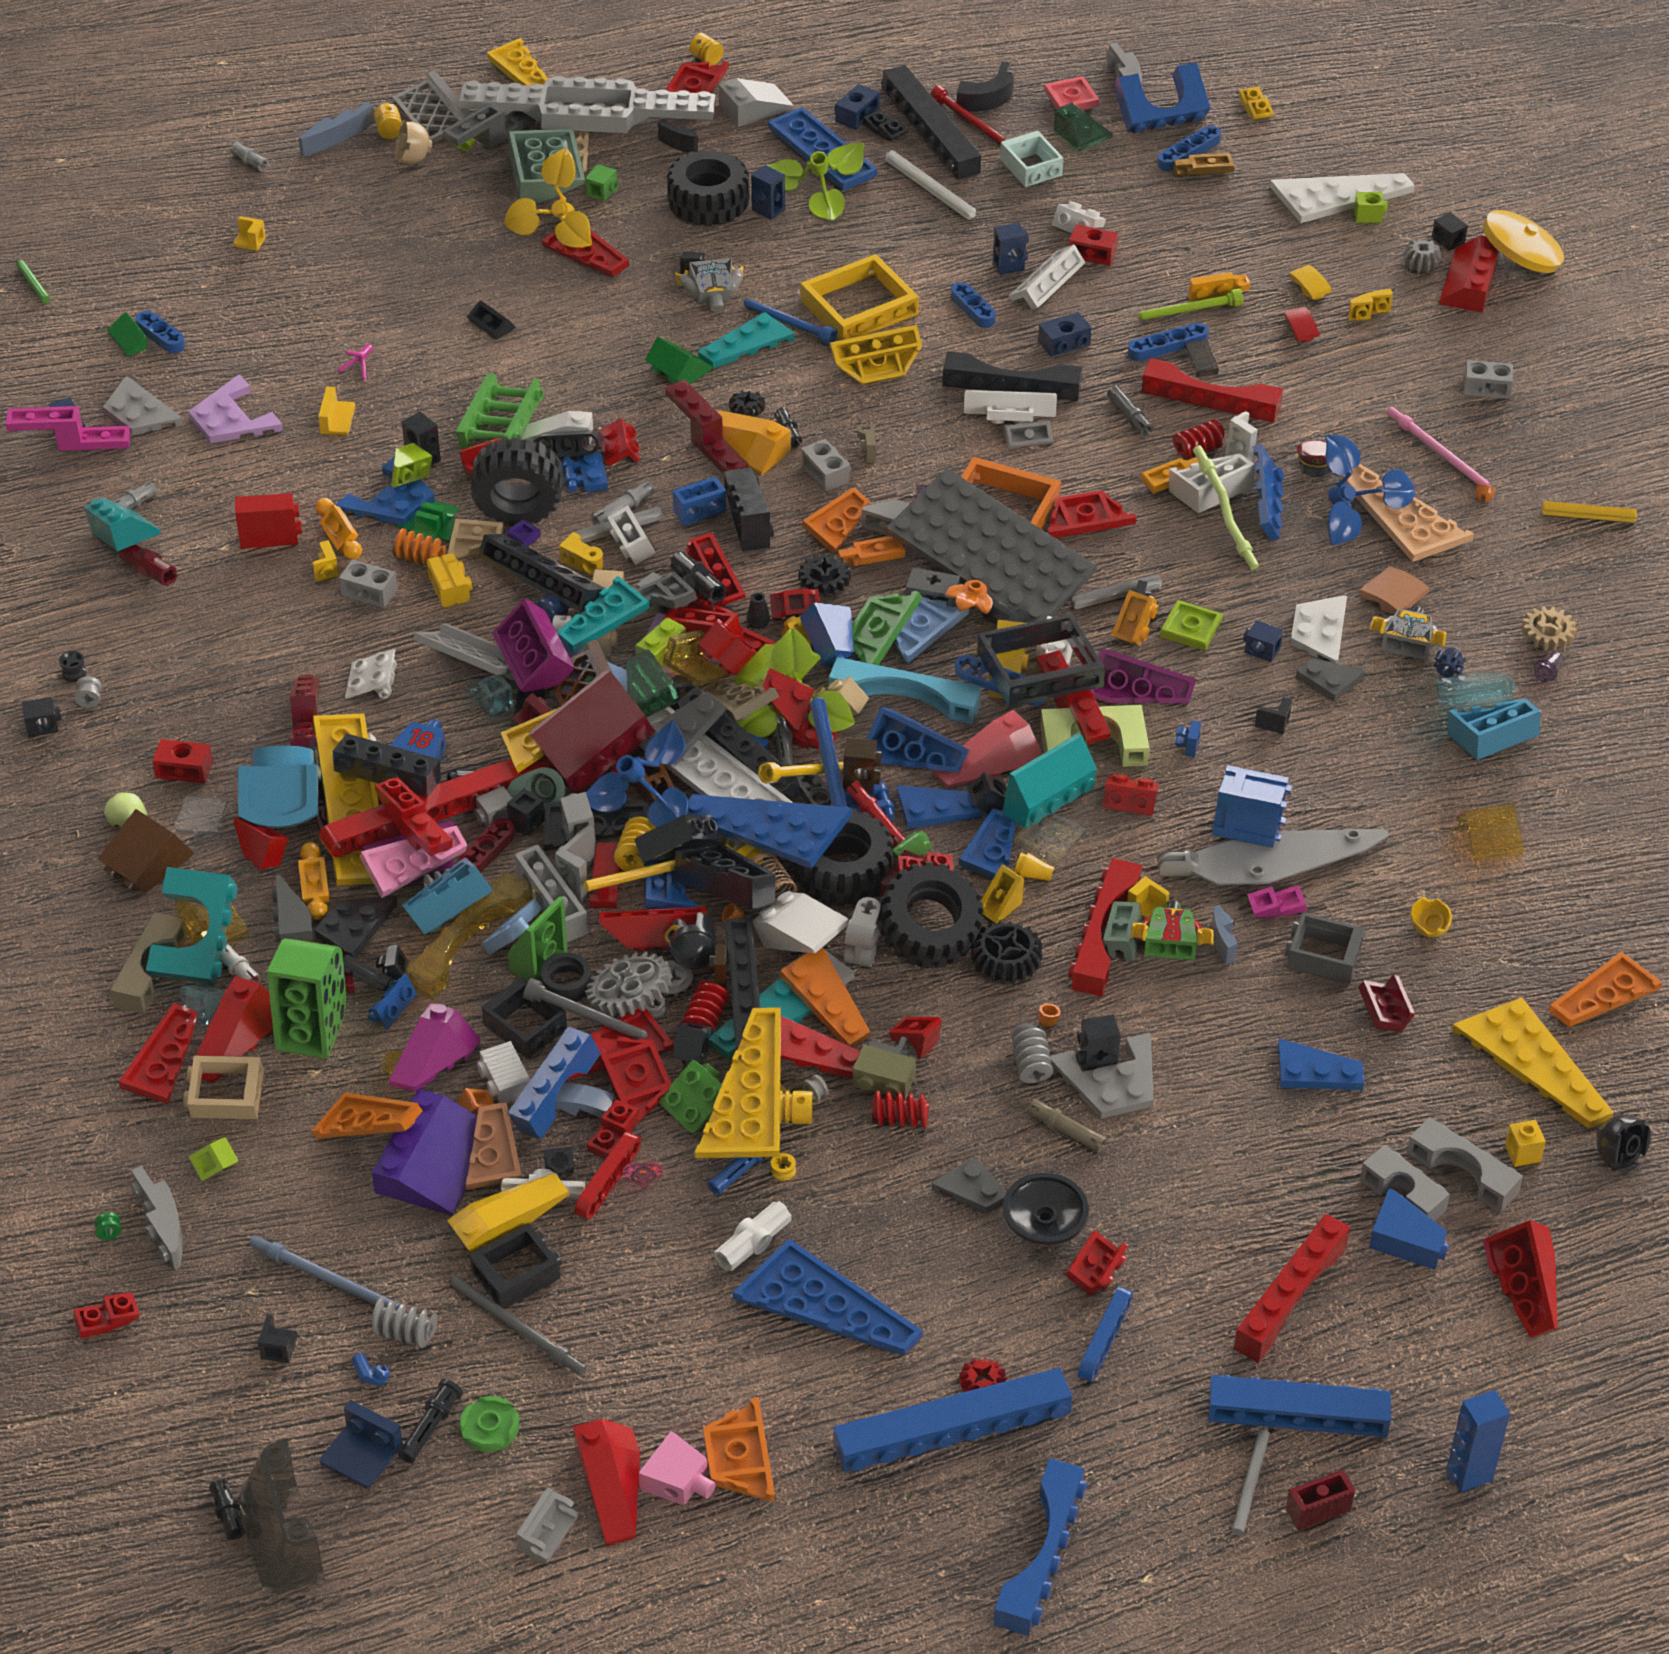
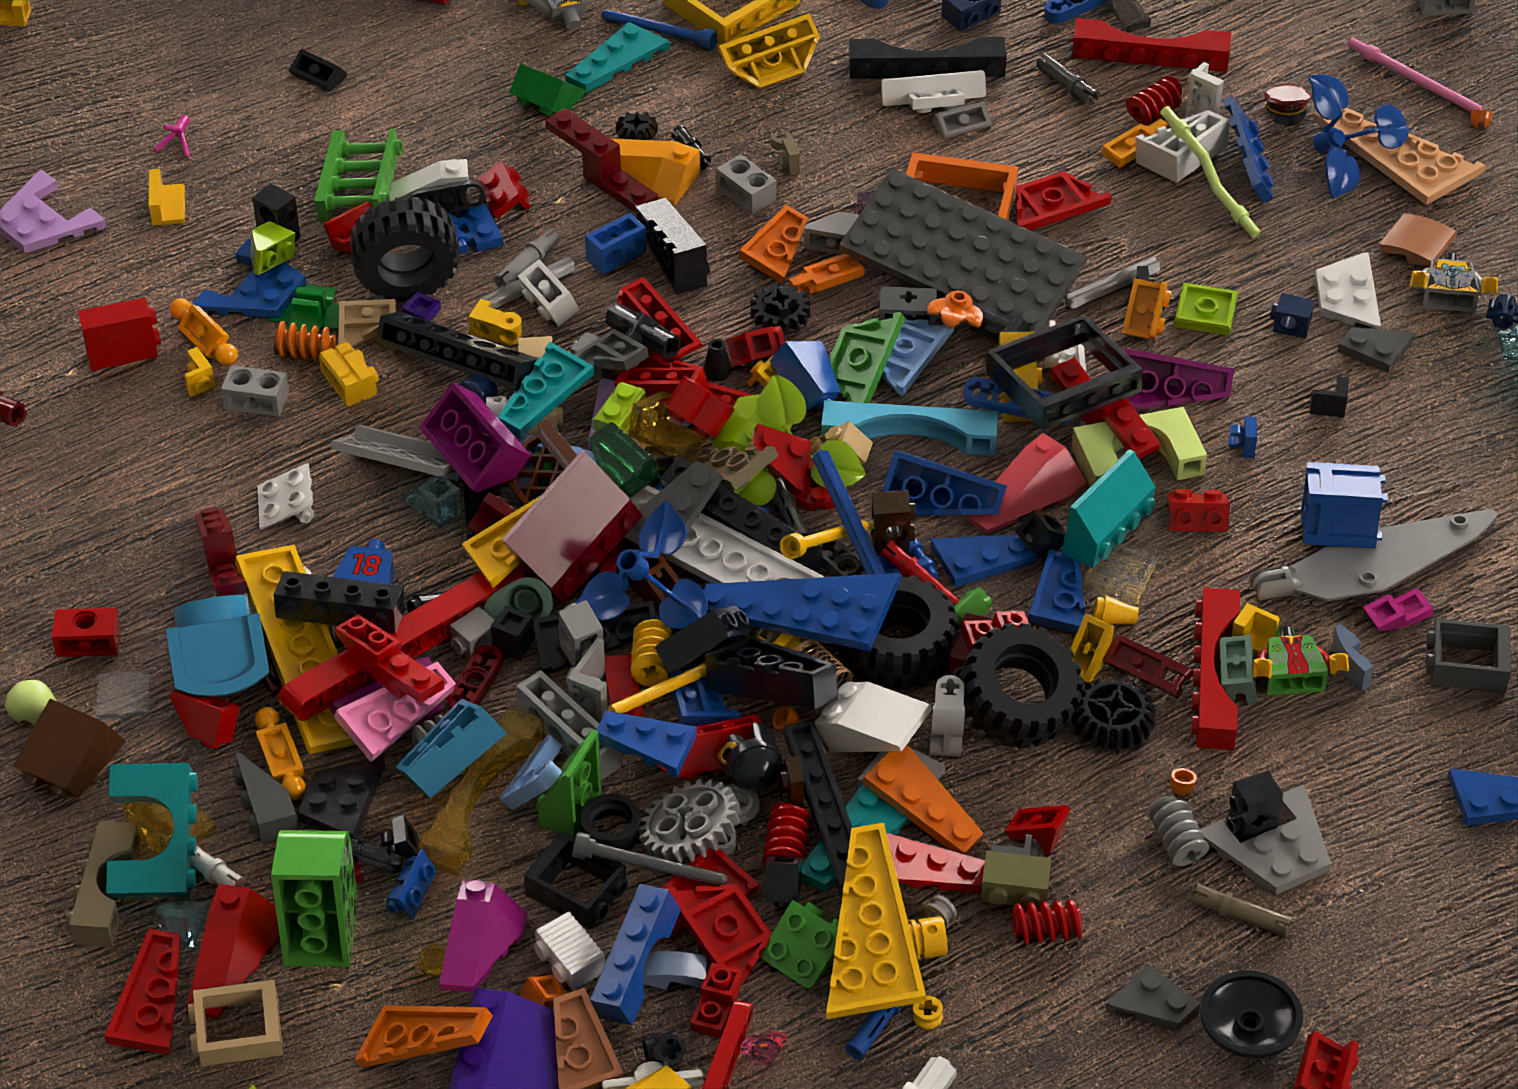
camera: 10 degrees left, 0 degrees up
(609, 912) = (654, 740): none -> blue wing
(1047, 915) = (1147, 665): none -> dark red plate

